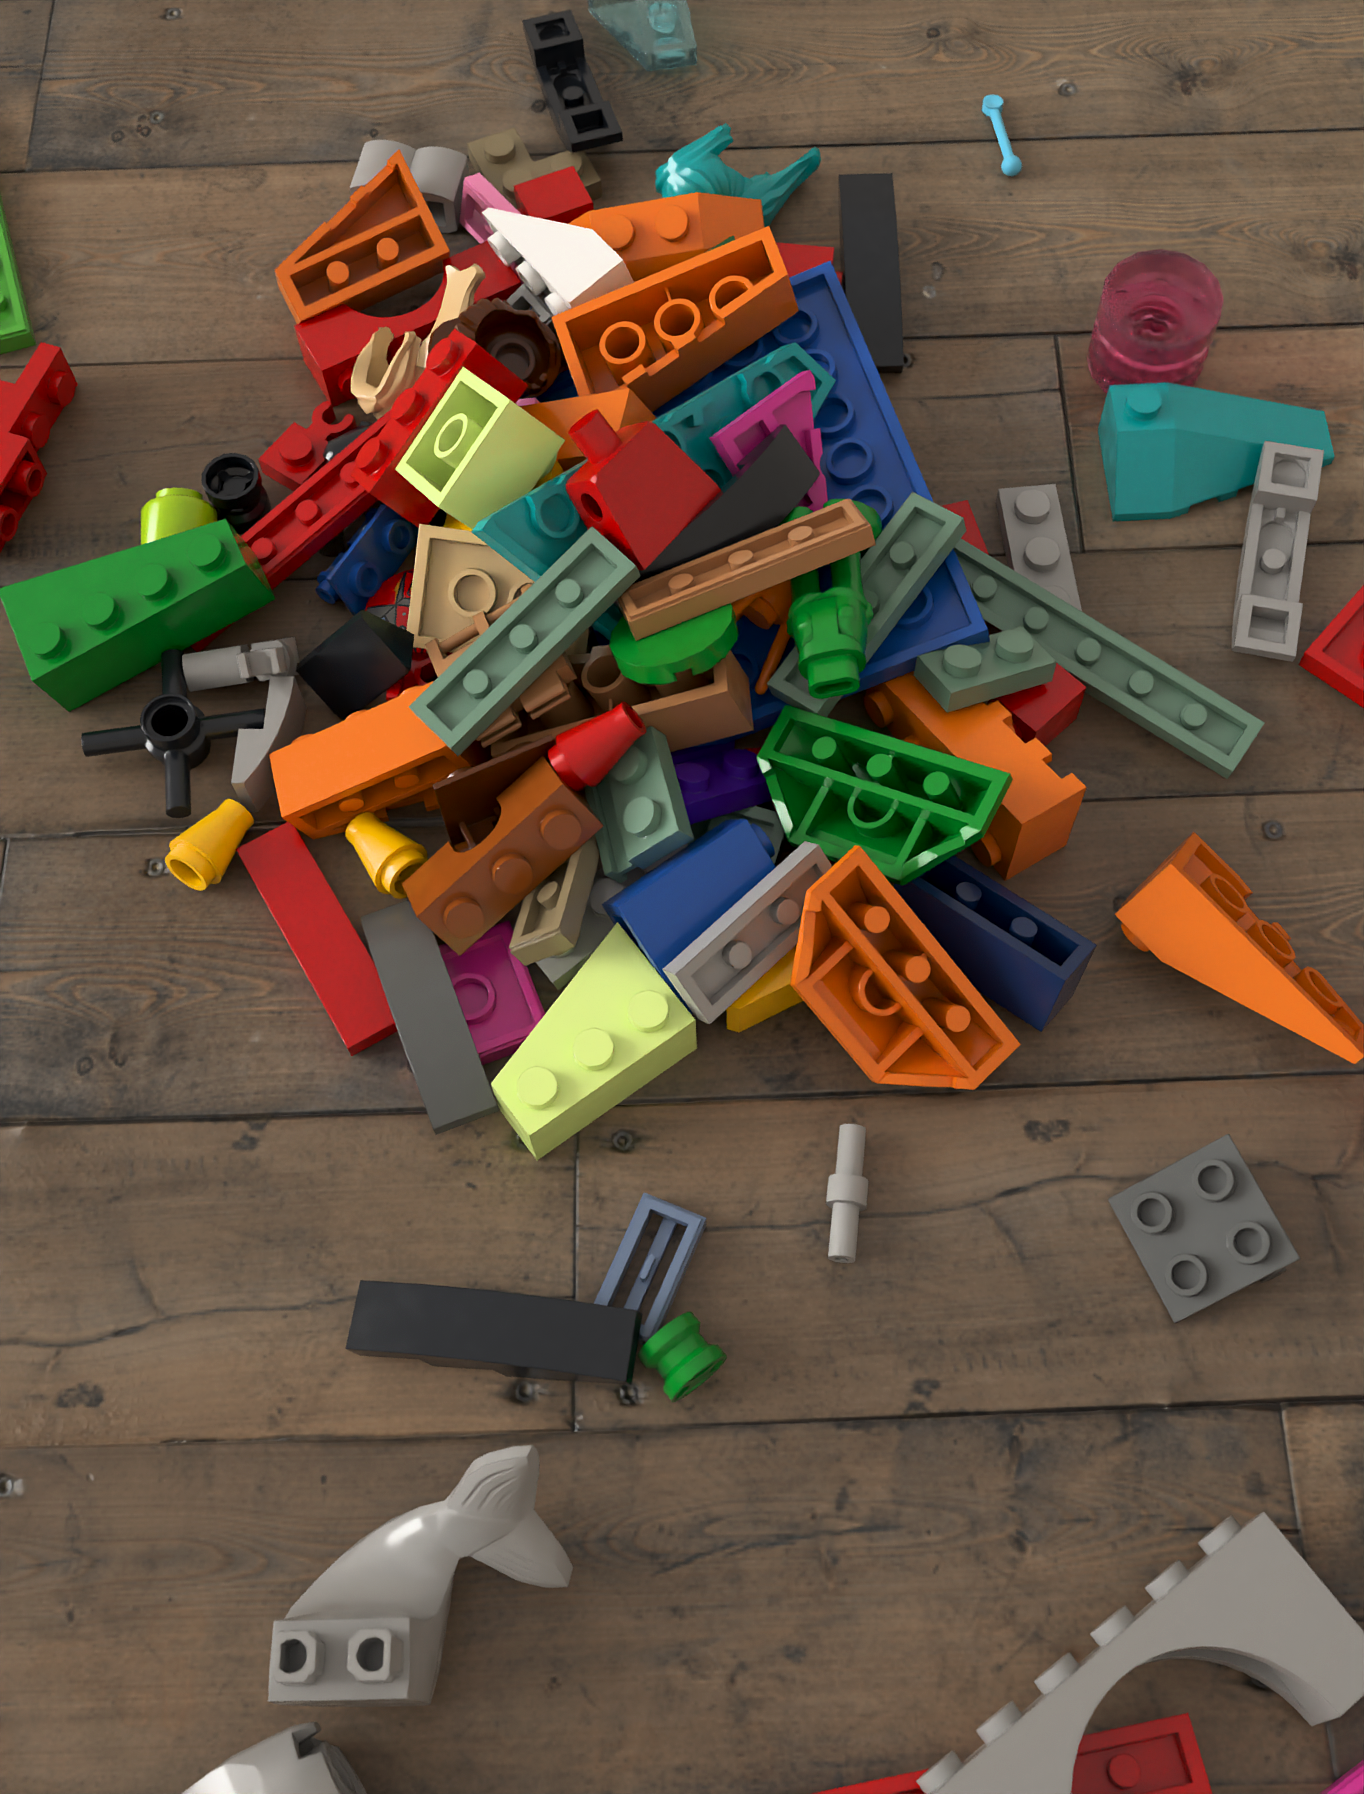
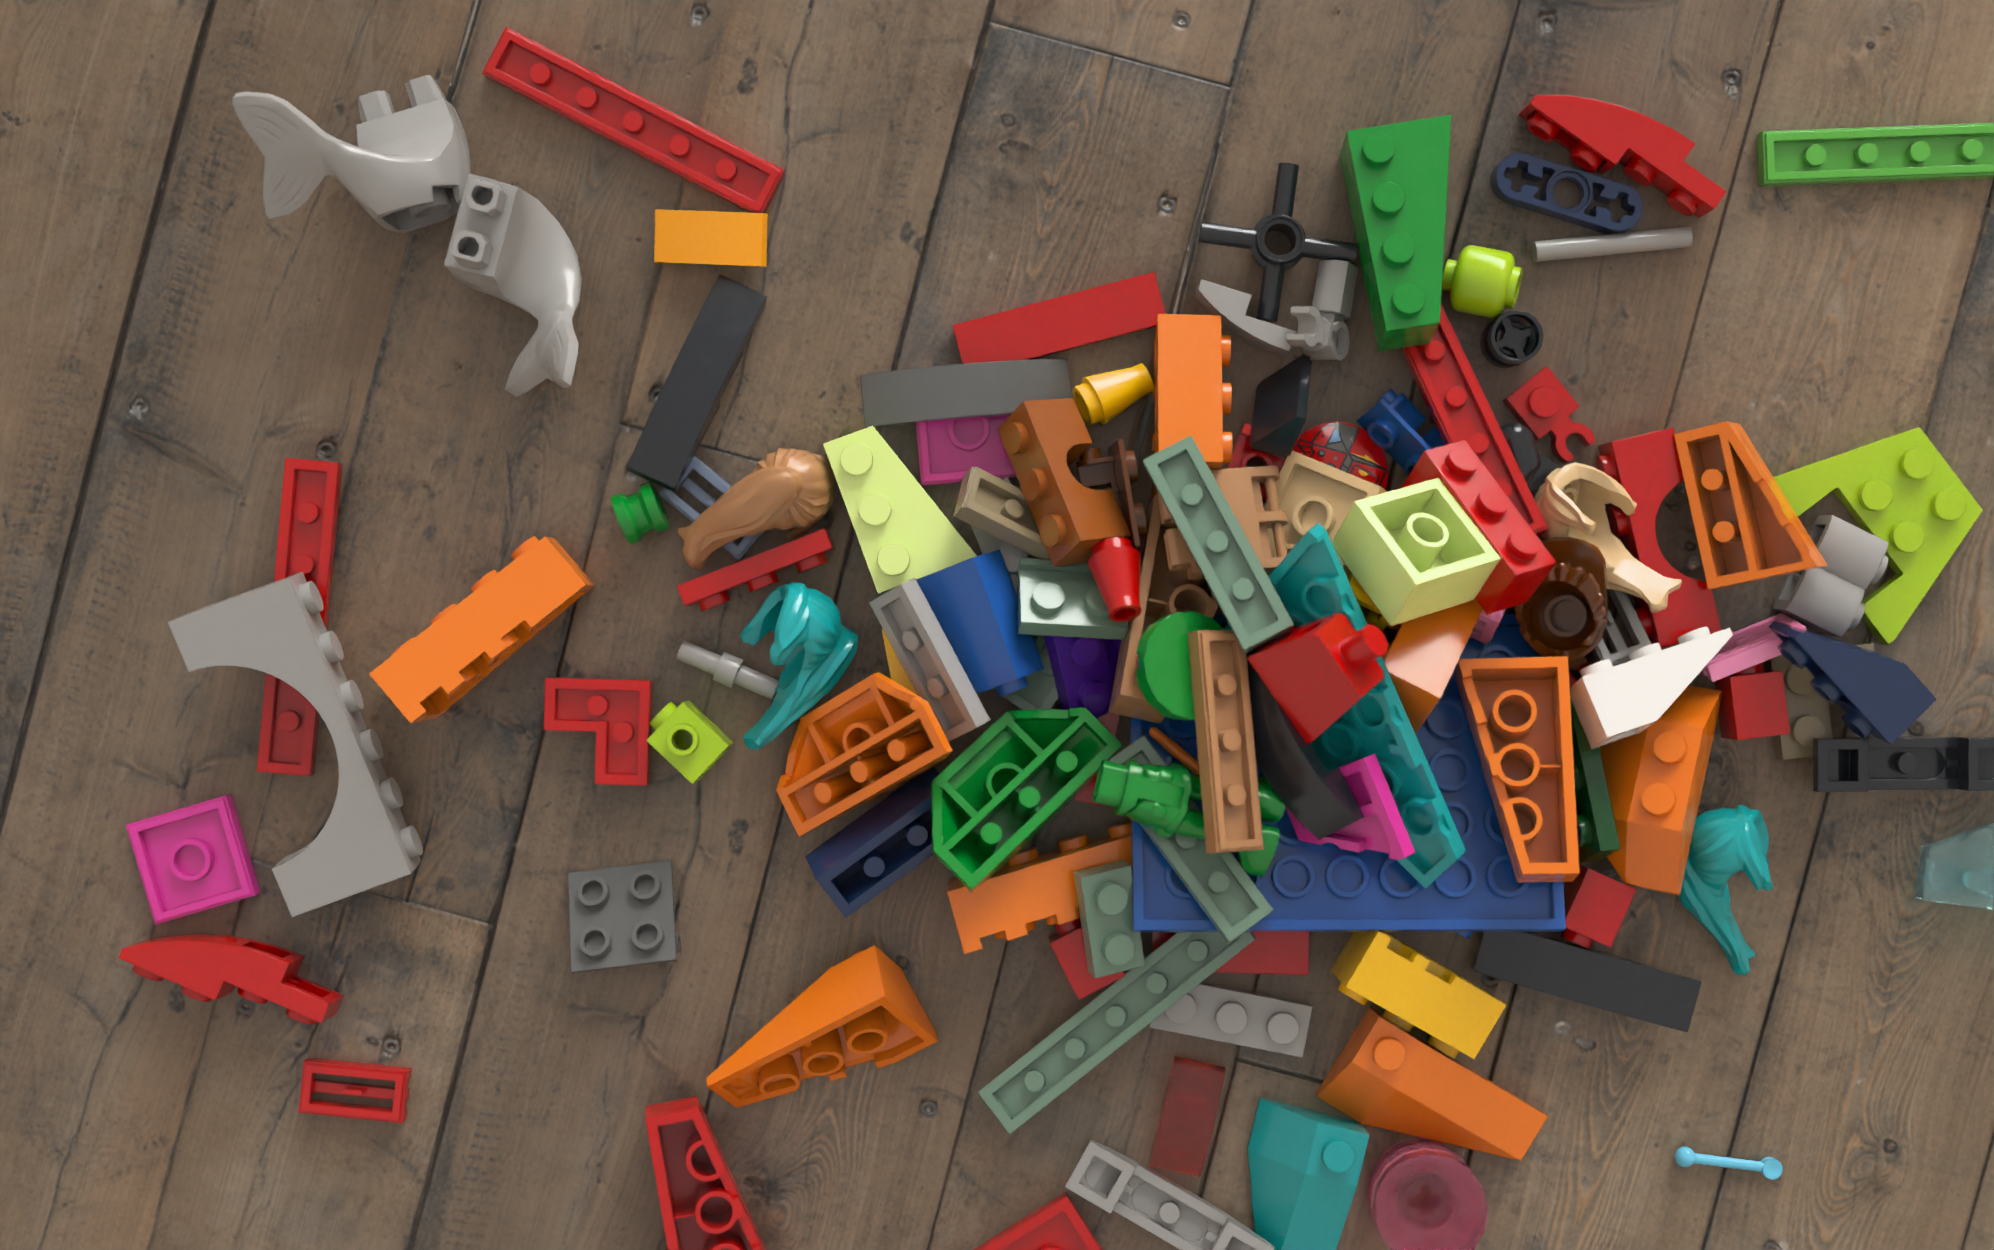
camera: 100 degrees right, 25 degrees up
(79, 513) = (1598, 218): none -> dark blue beam
(118, 442) = (1612, 244): none -> light grey bar
(162, 1540) = (633, 122): none -> red tile
(207, 847) = (1163, 251): yellow cone -> none
(299, 1373) = (710, 237): none -> light orange slope
(317, 153) = (1901, 495): none -> lime wing
(508, 120) = (1873, 689): none -> dark blue slope
(608, 1177) = (780, 493): none -> medium nougat hair
(712, 1188) = (757, 571): none -> red plate
(795, 1089) = (811, 647): none -> teal hair
(902, 1519) = (482, 630): none -> orange wedge
(945, 397) = (1417, 992): none -> yellow wedge
(948, 1317) = (617, 713): none -> red plate
(951, 1208) = (688, 739): none -> lime brick
(1042, 384) = (1414, 1089): none -> orange wedge
(1154, 567) = (1187, 1116): none -> clear red slope

